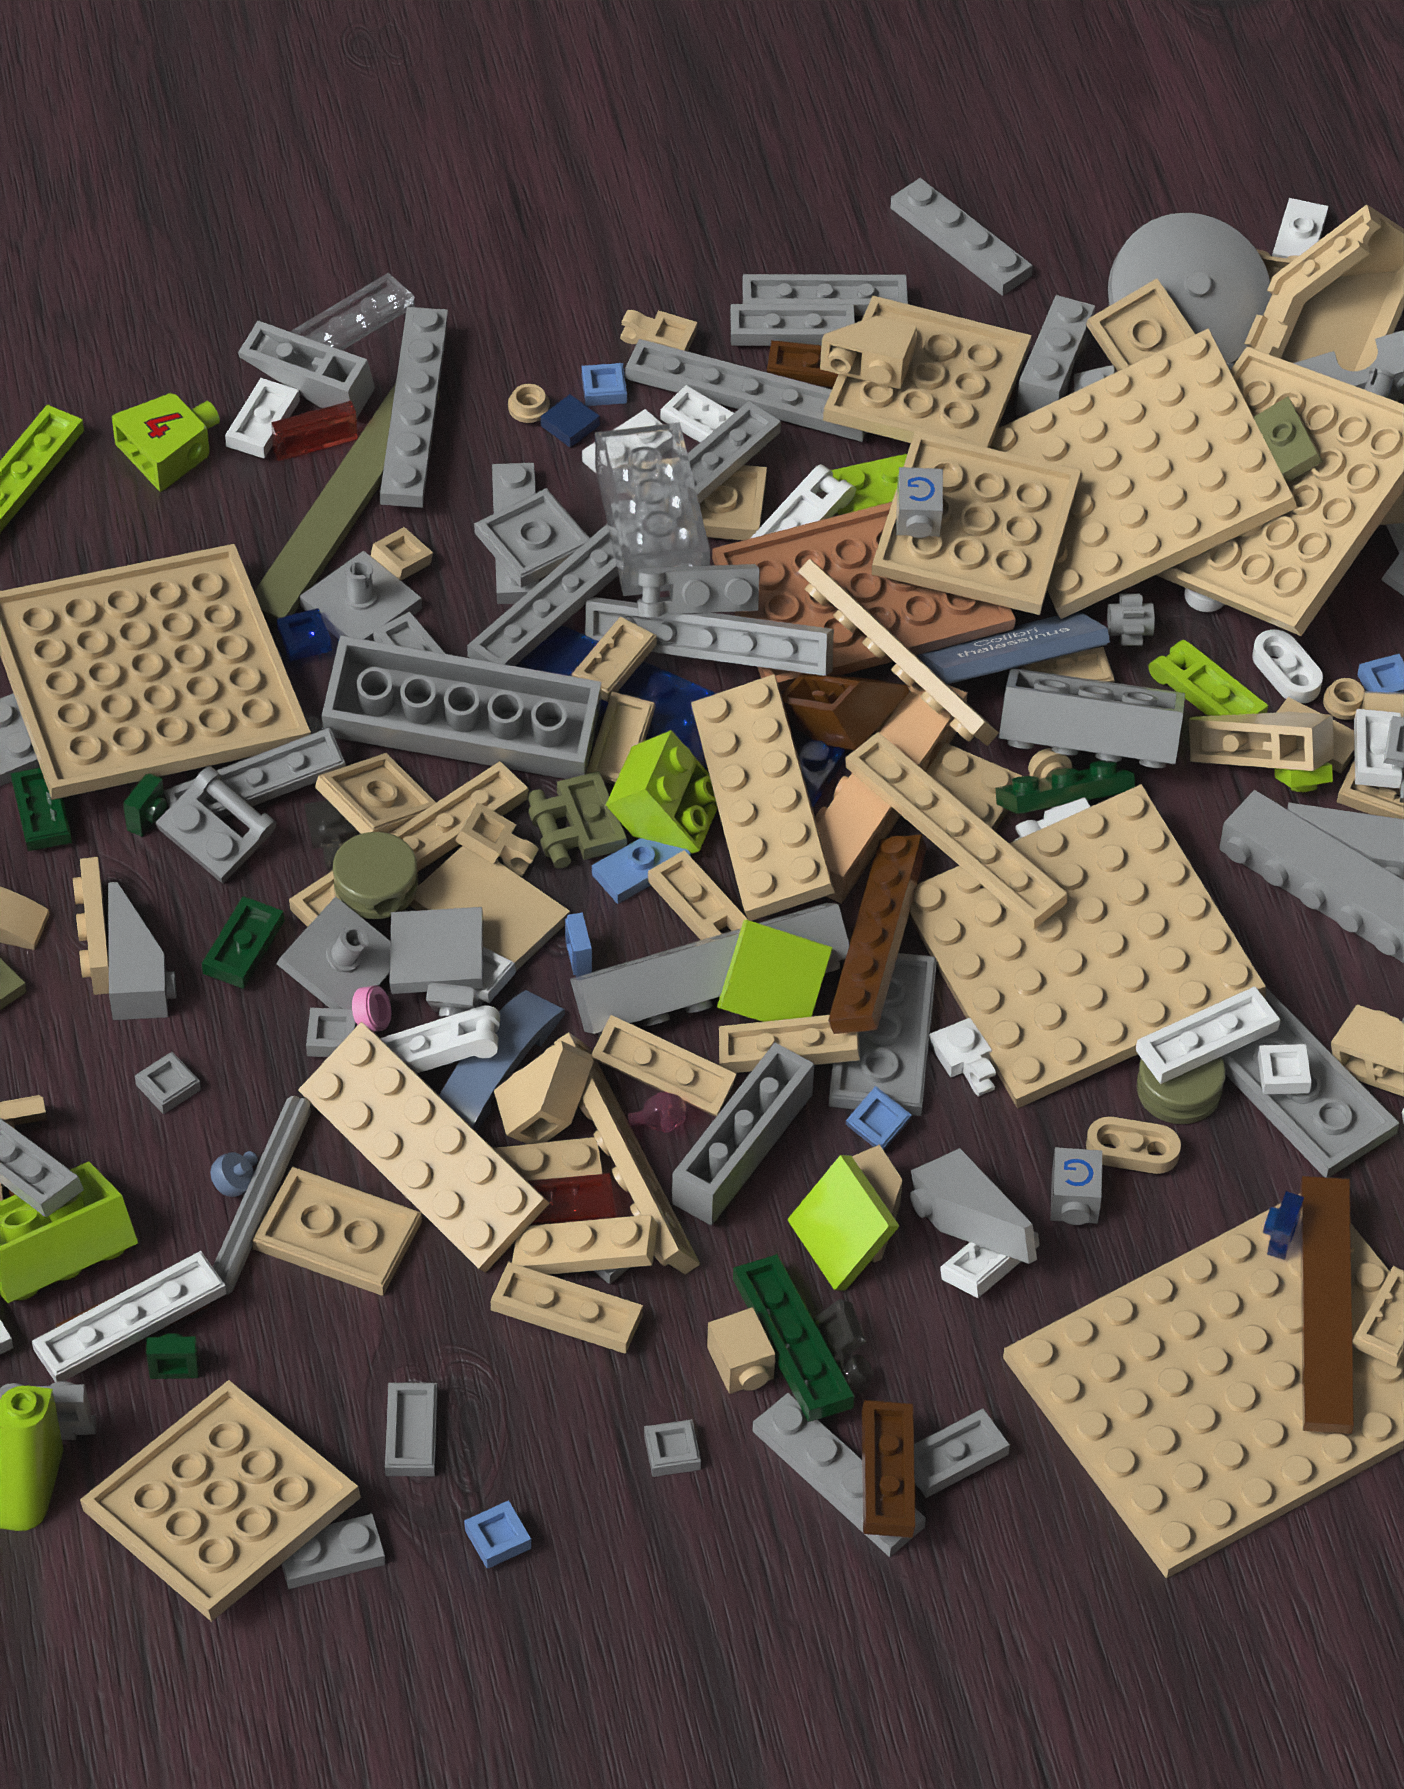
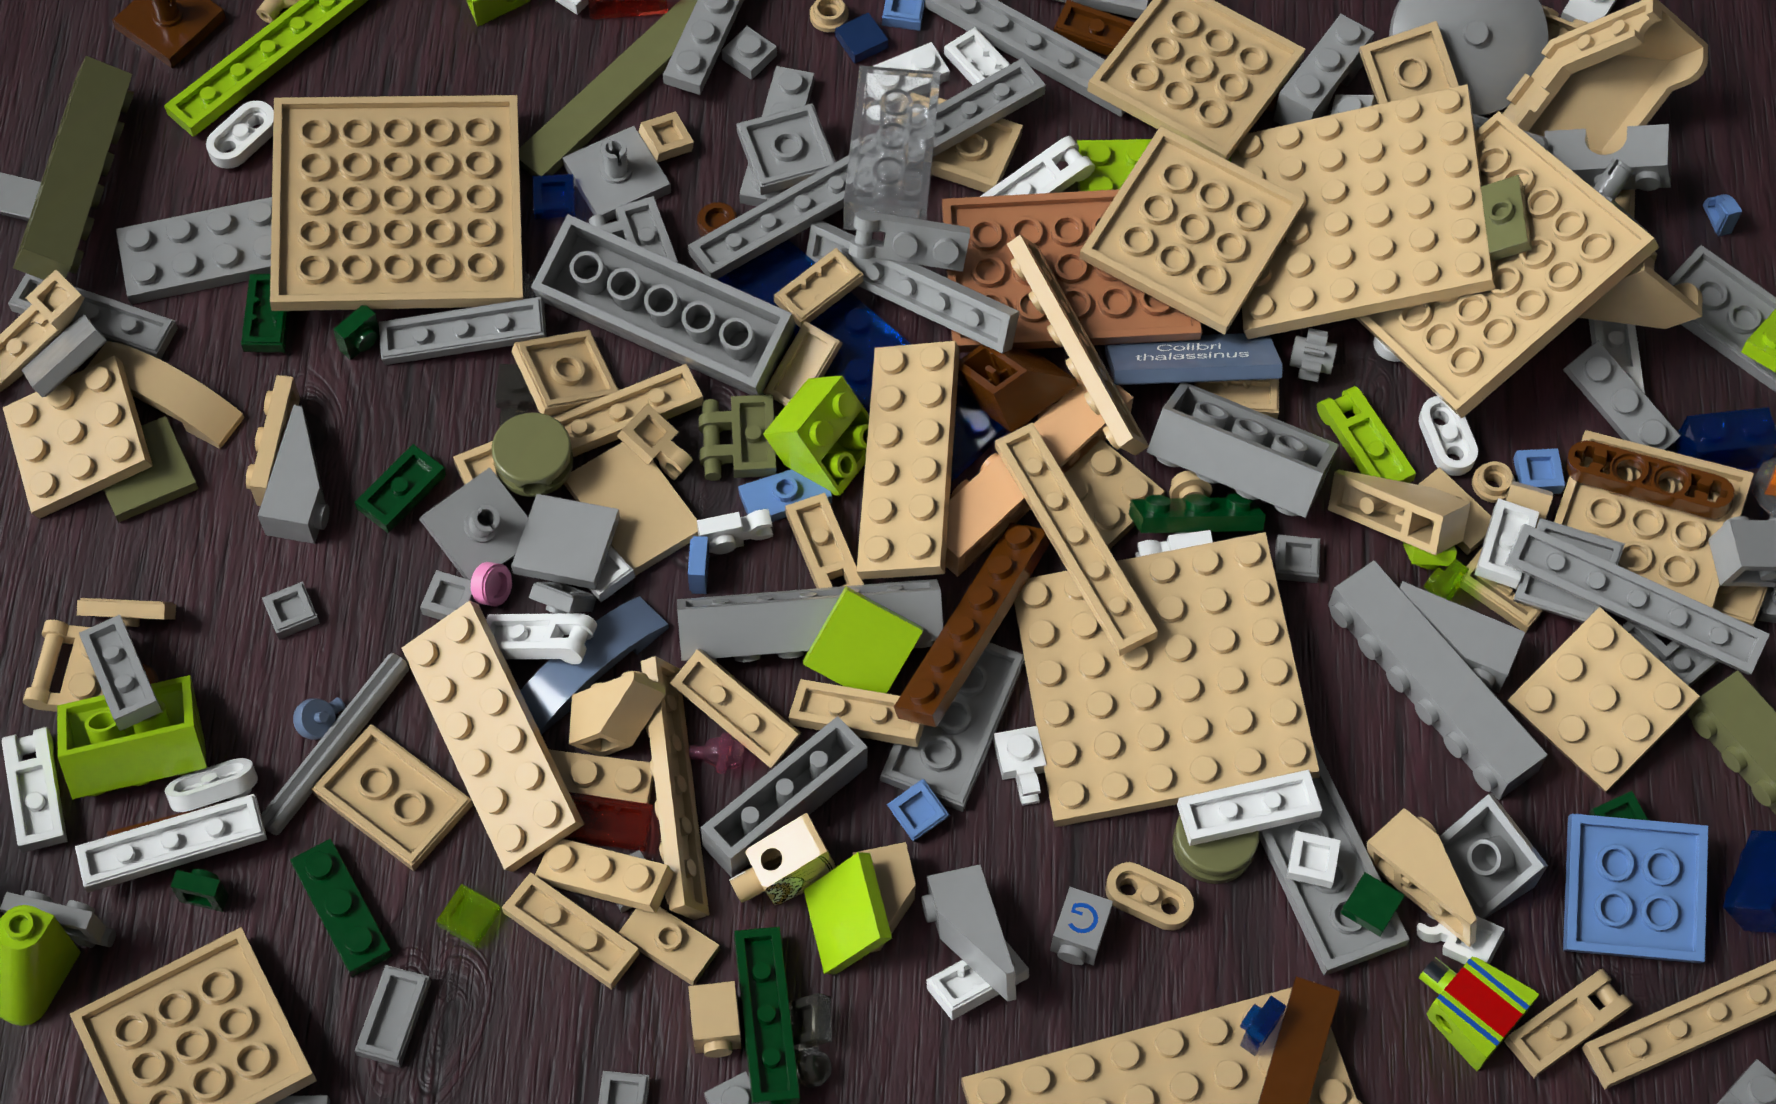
camera: 15 degrees right, 10 degrees up
(148, 1258) = (210, 785): none -> white plate
(208, 837) = (400, 374): light grey plate -> none
(321, 1343) = (341, 908): none -> dark green plate
(455, 1321) = (468, 915): none -> clear neon green tile
(458, 458) = (749, 52): none -> light grey plate
(476, 620) = (714, 216): none -> reddish brown tile
(603, 903) = (730, 530): none -> white plate
(671, 1296) = (670, 943): none -> tan plate
(766, 1190) = (784, 863): none -> torso
(871, 350) = (1147, 34): tan slope -> none
(919, 502) = (1139, 201): light grey brick -> none
(1178, 810) = (1297, 558): none -> light grey tile
(1333, 794) = (1447, 582): none -> clear neon green plate
(1353, 1098) = (1372, 904): none -> dark green tile

